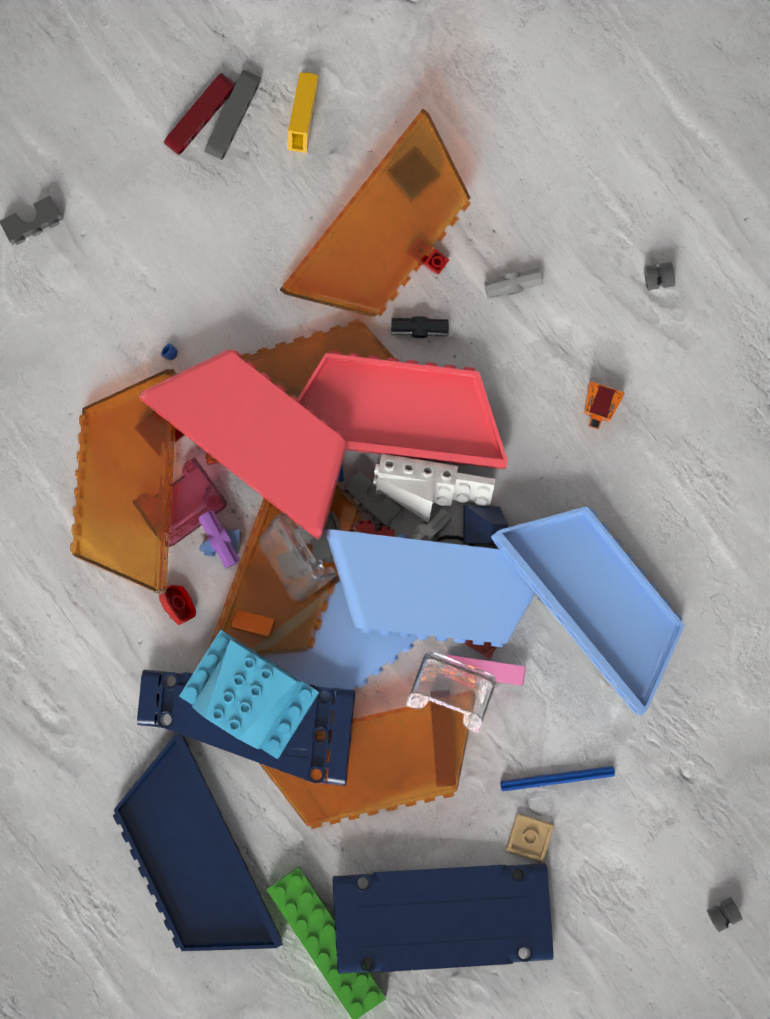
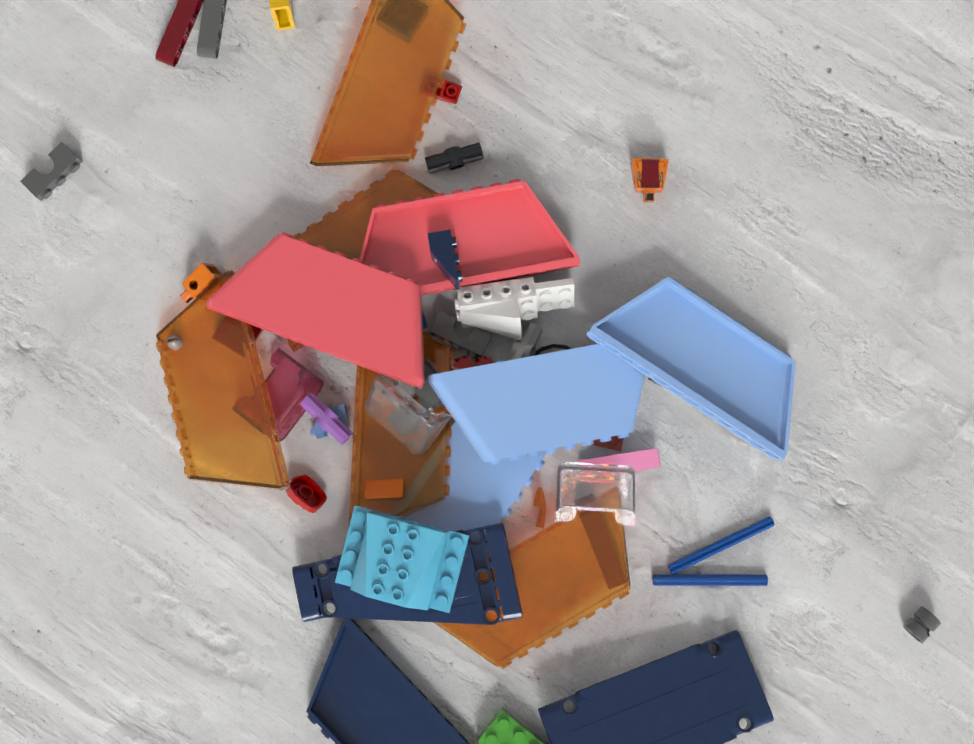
camera: 20 degrees left, 0 degrees up
(97, 424) = (174, 345): none -> light grey hinge
(144, 367) = (199, 281): none -> orange torso
(169, 352) = (223, 255): blue hinge -> none
(378, 416) = (443, 255): none -> dark blue slope
(397, 683) = (539, 501): none -> clear orange slope
(482, 523) = (572, 325): dark blue slope -> none
(513, 283) = (530, 89): light grey piece -> none
(530, 837) = (713, 609): tan tile -> none
(536, 808) = (710, 580): none -> blue axle
(659, 276) = (670, 35): dark grey wheel -> none

